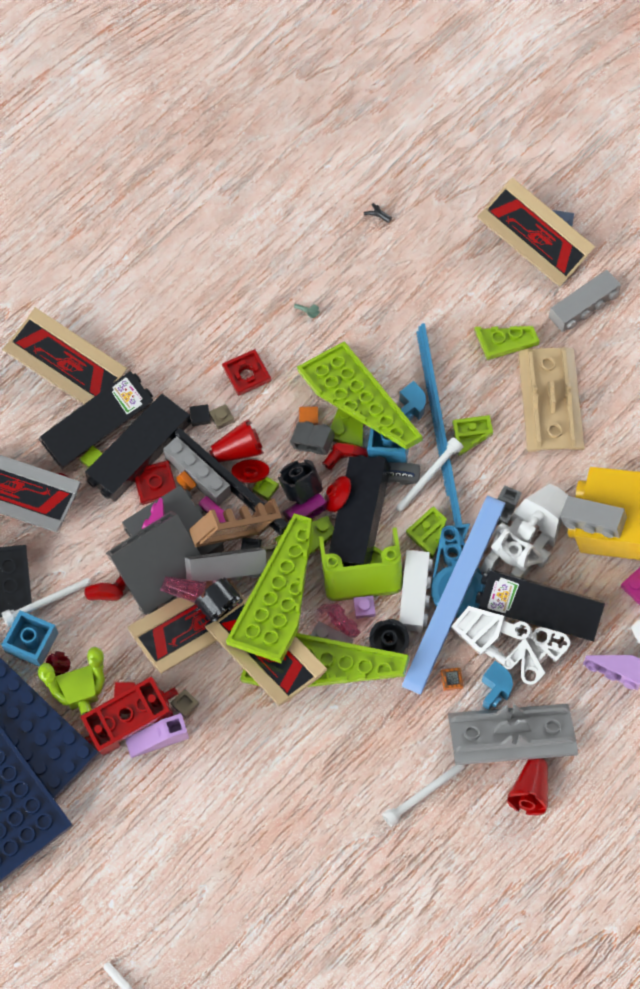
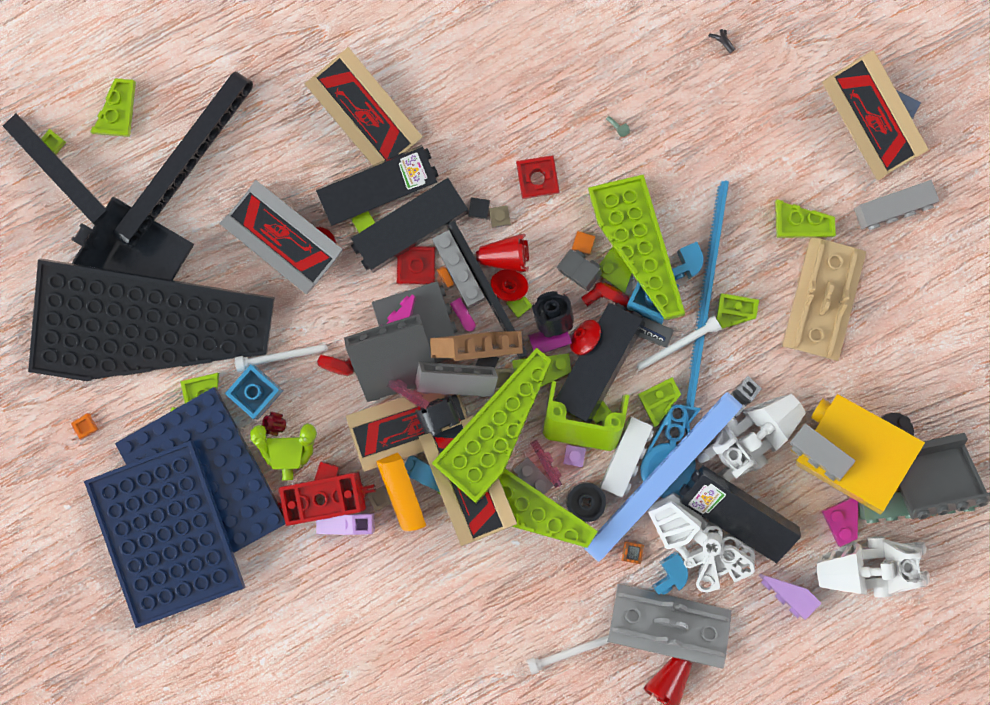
camera: 20 degrees right, 20 degrees up
(205, 685) = (401, 492): none -> light orange brick
(220, 662) = (421, 472): none -> dark azure brick

